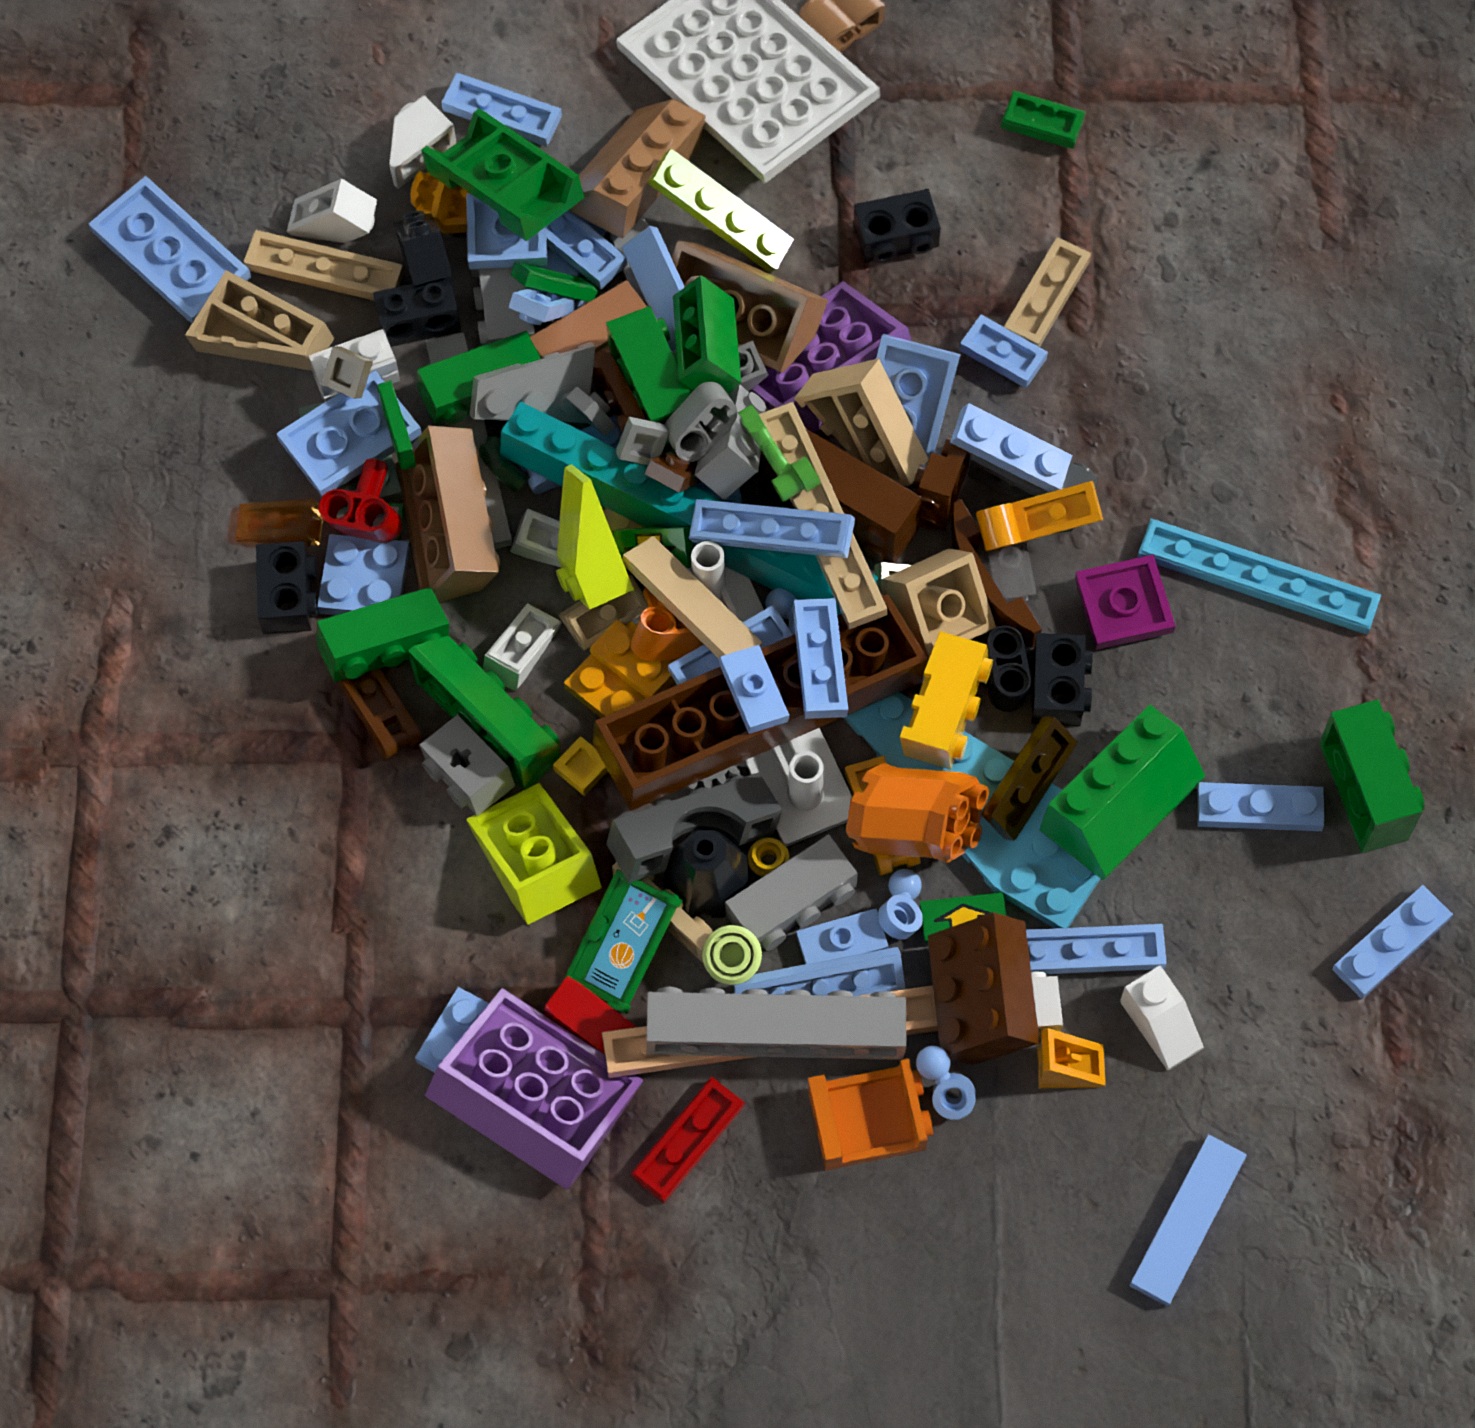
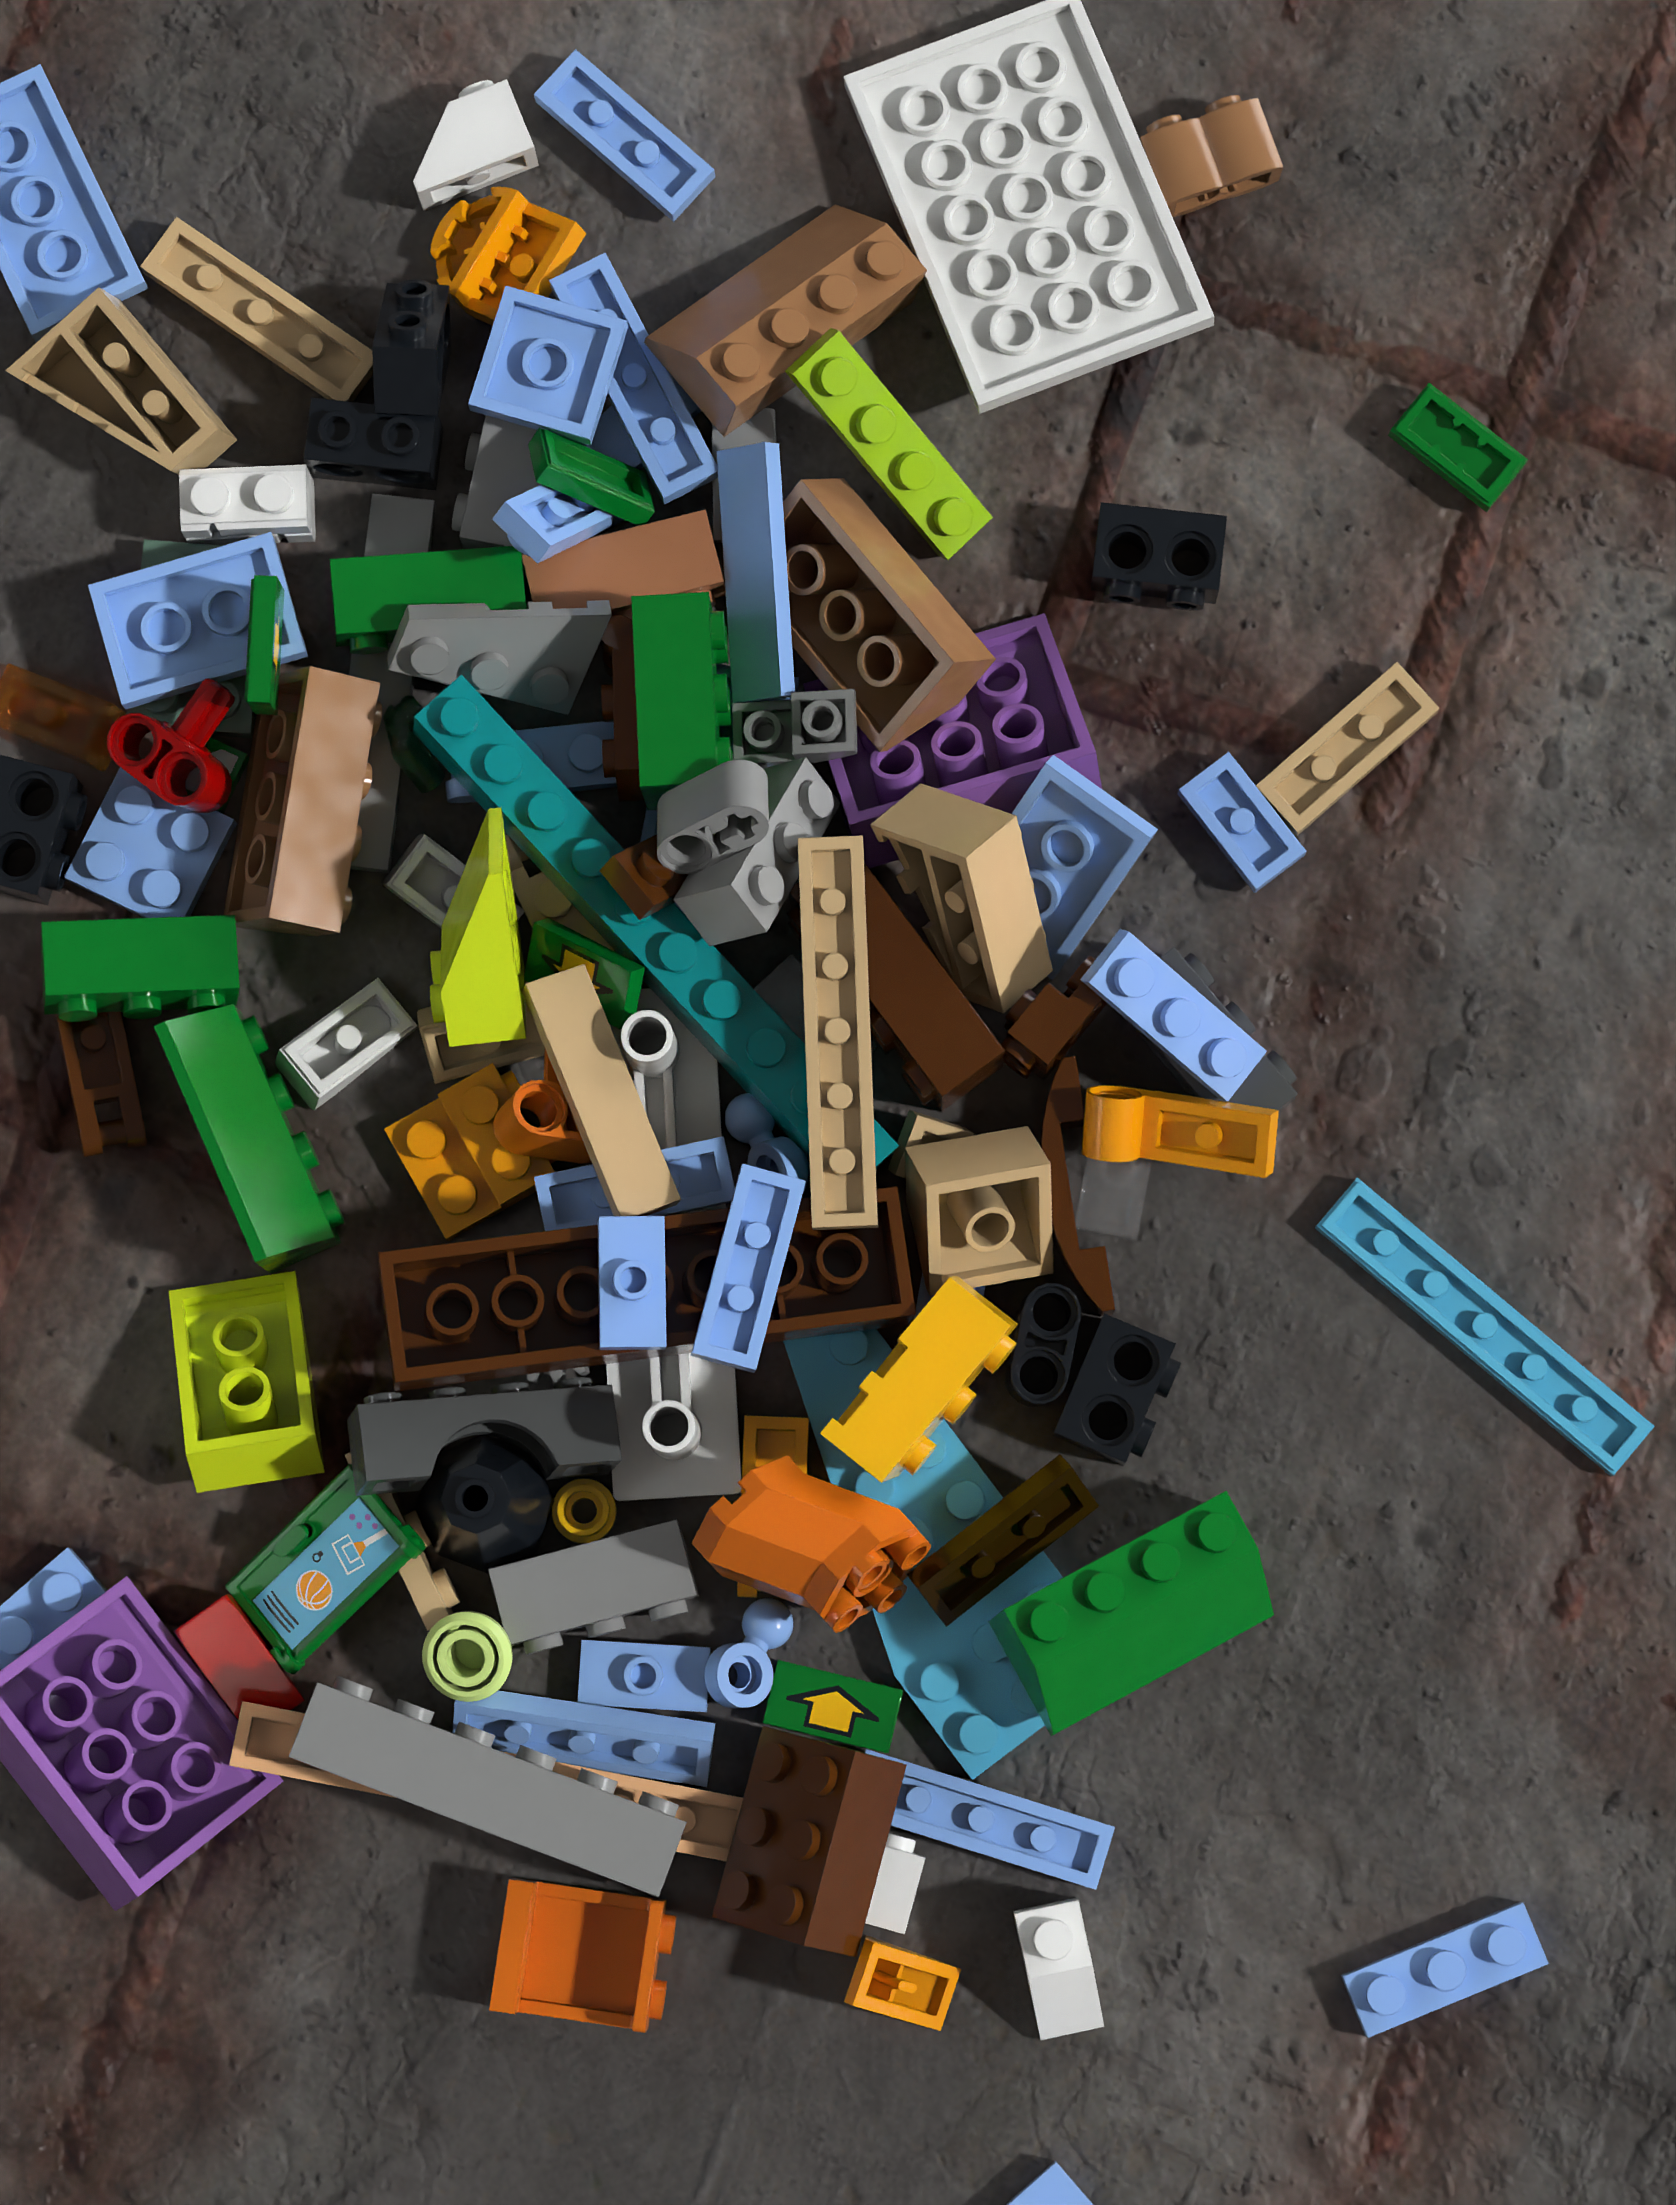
camera: 25 degrees right, 15 degrees up
(333, 213) = (303, 229): white slope -> none
(347, 372) = (221, 529): dark tan plate -> none
(466, 765) = (214, 1243): light grey brick -> none
(507, 175) = (572, 280): green piece -> none
(581, 766) = (355, 1270): yellow plate -> none
(592, 409) = (572, 713): light grey plate -> none
(642, 440) = (616, 813): light grey plate -> none
(687, 1140) = (314, 1893): red tile -> none
(706, 336) = (776, 672): green brick -> none
(772, 528) = (754, 1032): light blue tile -> none
(791, 477) = (810, 968): bright green brick -> none
(934, 1065) = (697, 1925): light blue plate -> none
(1124, 602) = (1263, 1299): magenta plate -> none
(1260, 806) = (1336, 1691): light blue plate -> none
(1371, 775) = (1512, 1719): green brick -> none

